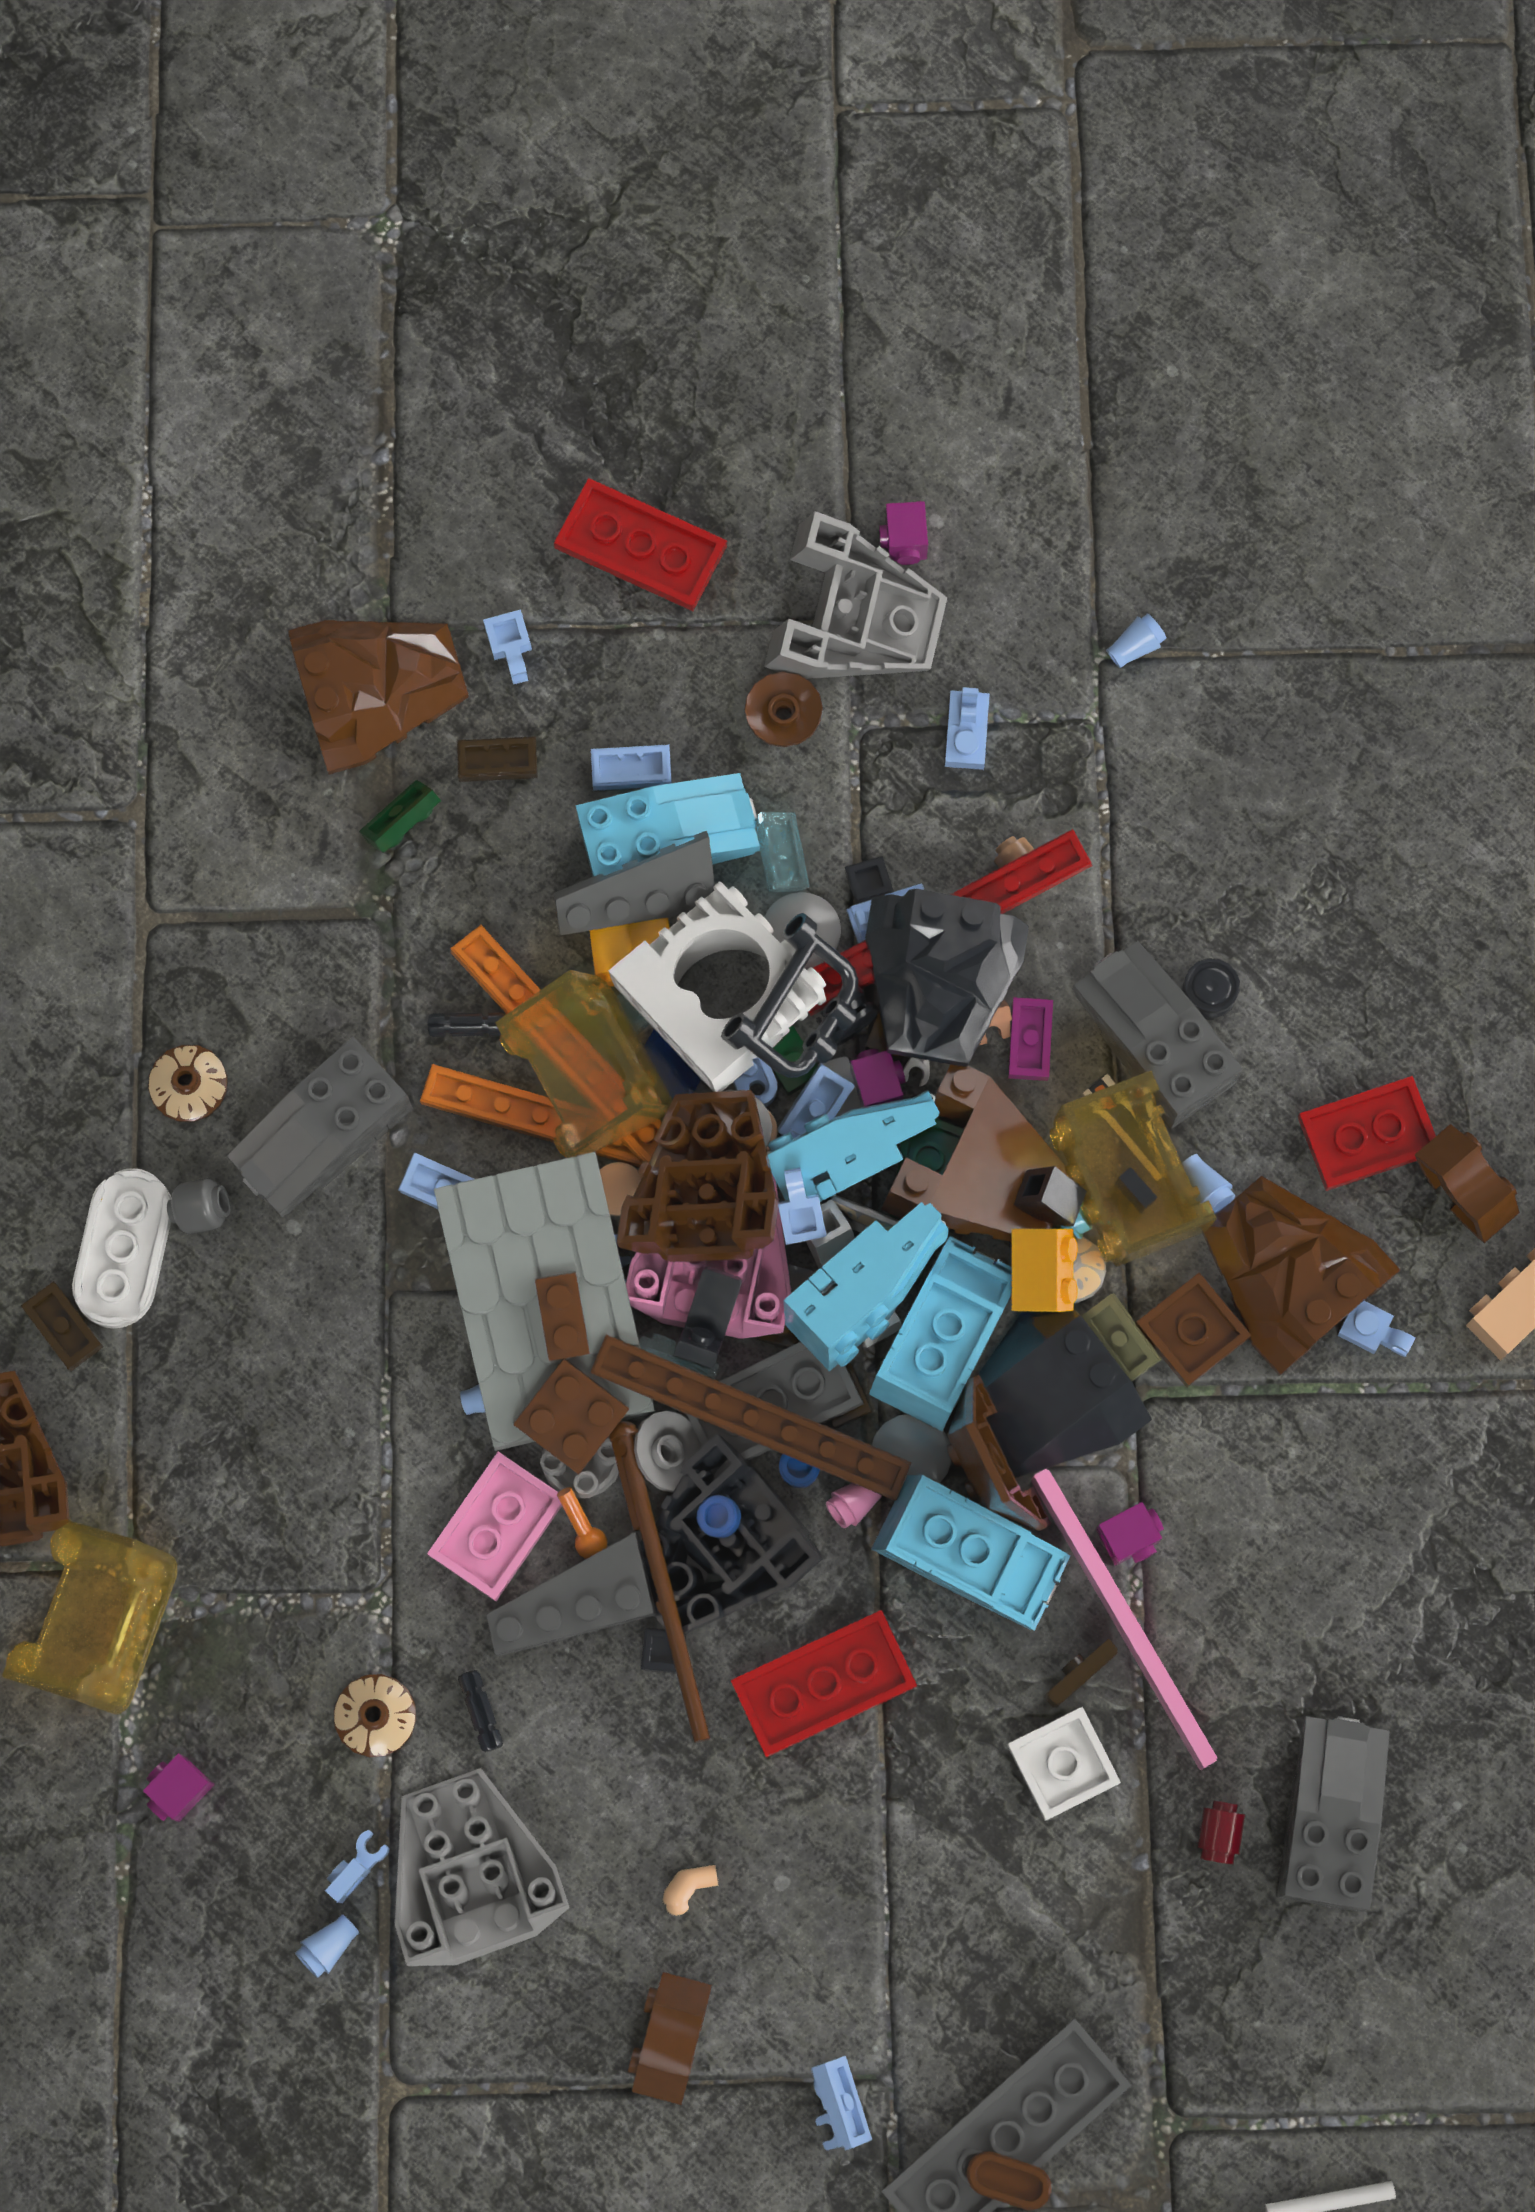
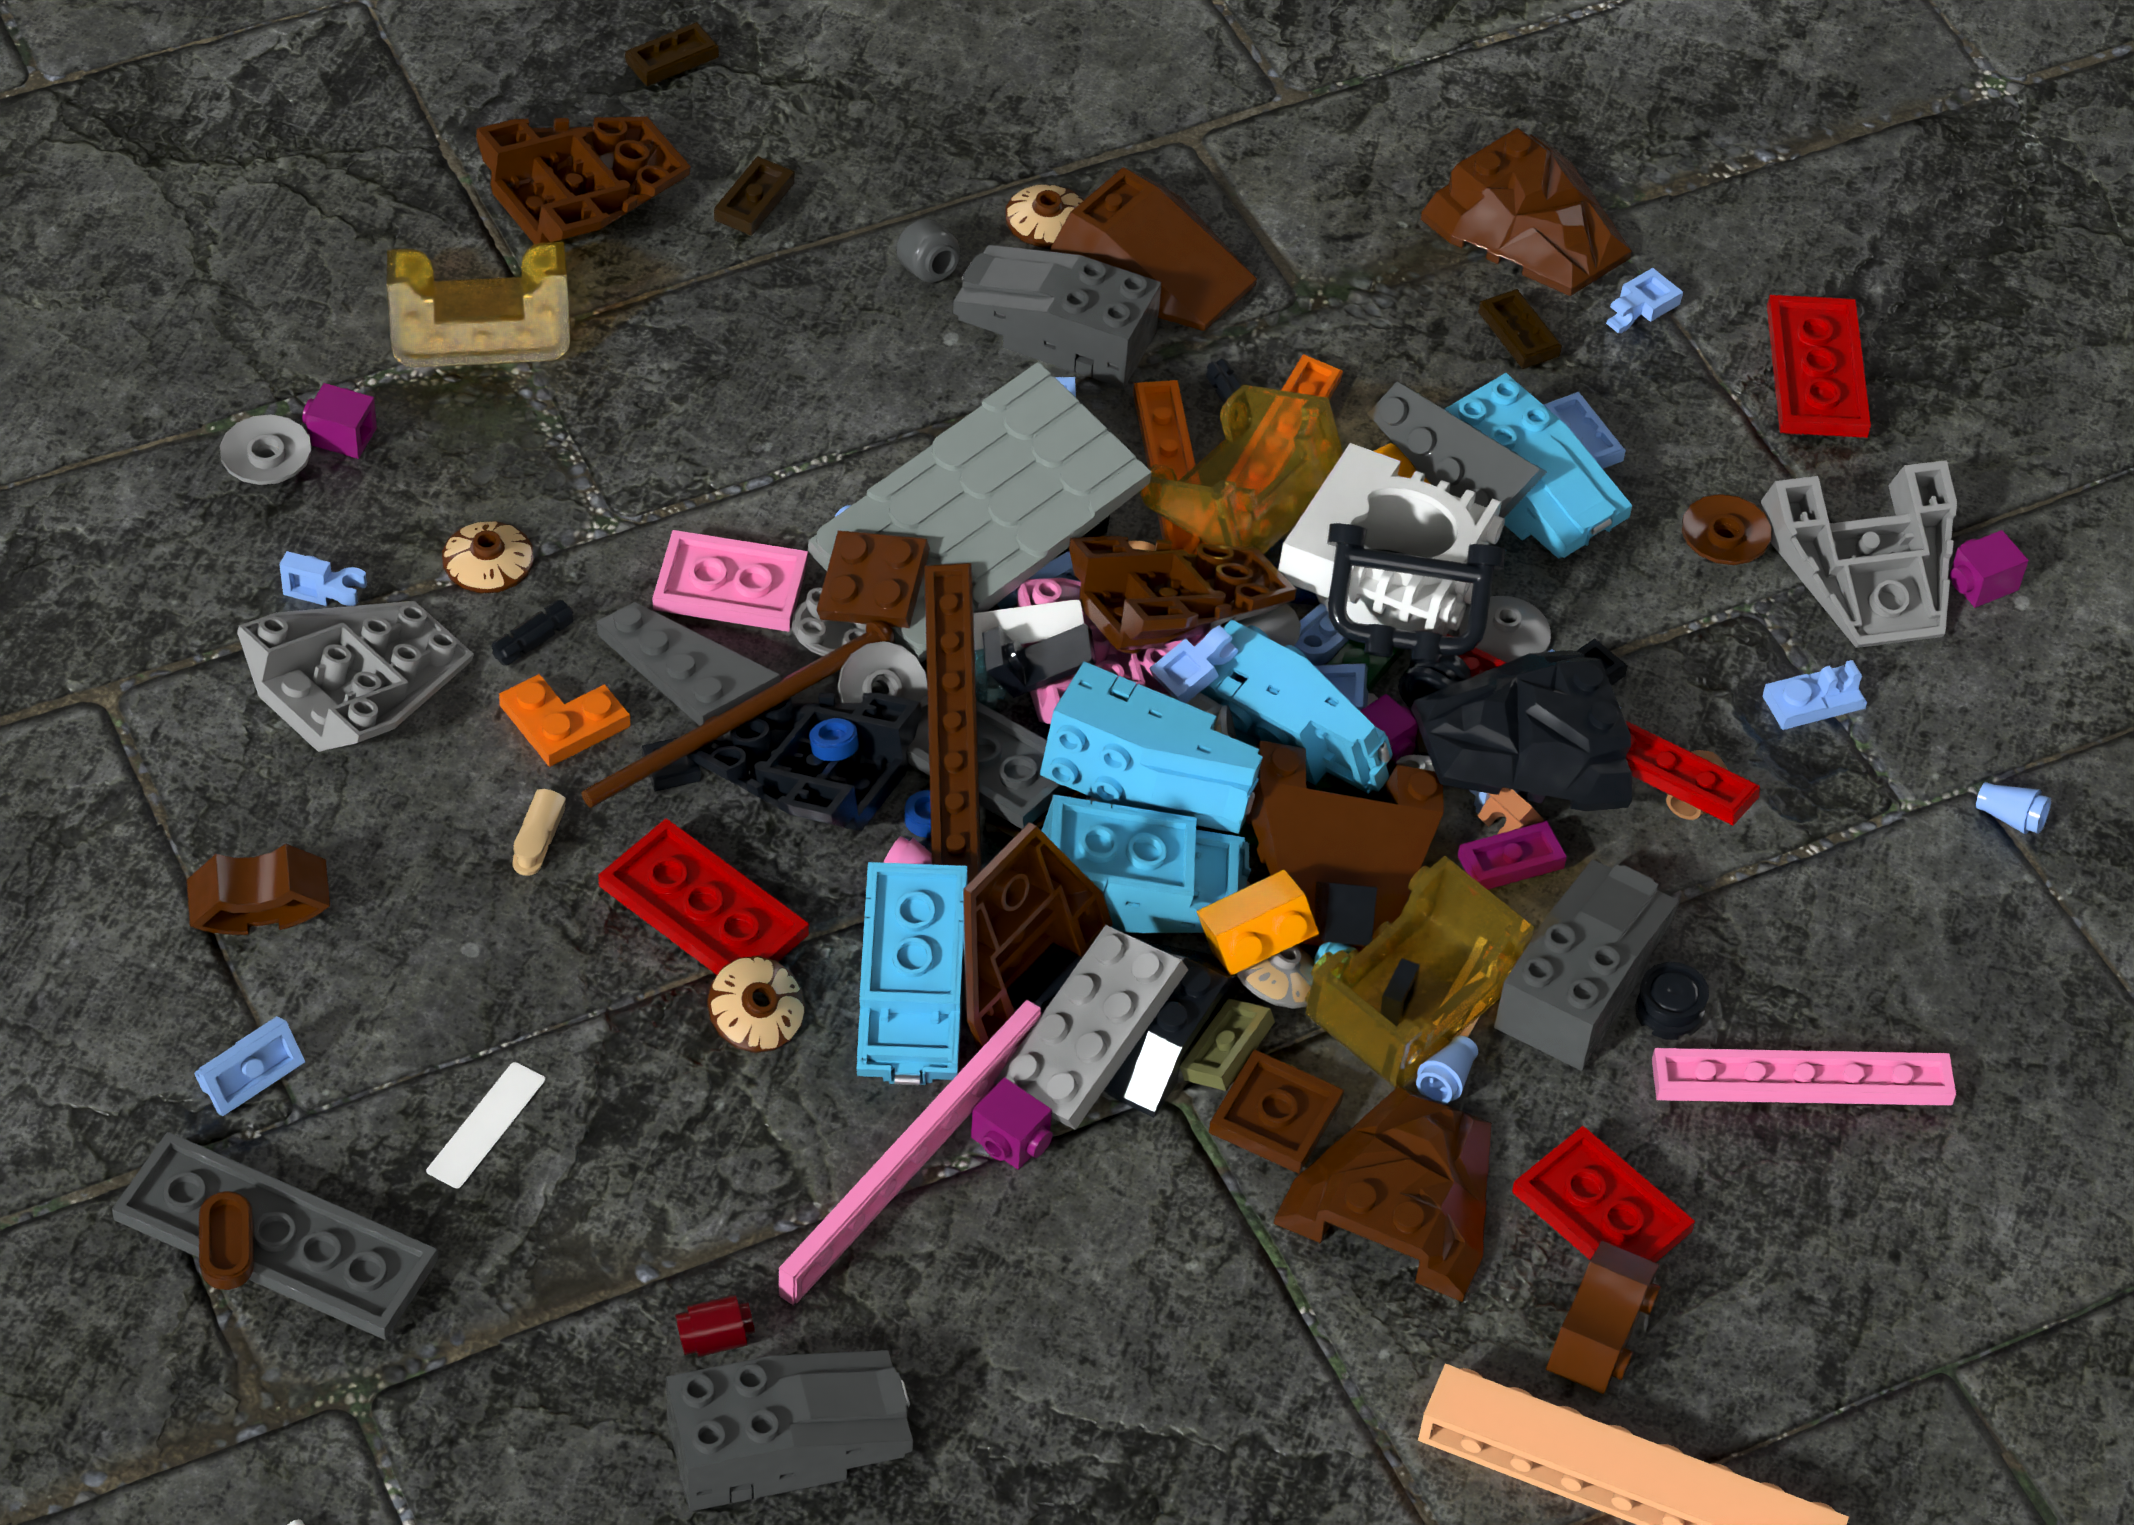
camera: 60 degrees right, 25 degrees down
(122, 1249) = (851, 218): white tile -> none
(164, 1861) = (265, 449): none -> light grey dish
(284, 1017) = (1158, 236): none -> reddish brown wedge
(326, 1946) = (231, 585): light blue cone -> none
(400, 816) = (1392, 270): dark green plate -> none
(562, 1316) = (970, 521): reddish brown plate -> none
(588, 1539) = (773, 638): orange bar -> none
(588, 1730) = (560, 728): none -> orange plate
(671, 1310) = (1031, 622): none -> white sticker
(684, 1885) = (431, 858): light nougat arm -> none
(694, 1787) = (537, 831): none -> tan bar
(781, 852) = (1574, 577): clear light blue plate -> none
(923, 1685) = (743, 1021): none -> tan dish
(957, 1933) = (485, 1125): none -> white sticker
(1063, 1763) = (721, 1150): white plate -> none
(1079, 1437) = (1093, 1024): none -> light grey plate
(1080, 1671) = (830, 1130): dark brown plate -> none
(1314, 930) = (1803, 1076): none -> bright pink plate
(1369, 1327) = (1379, 1288): light blue plate -> none

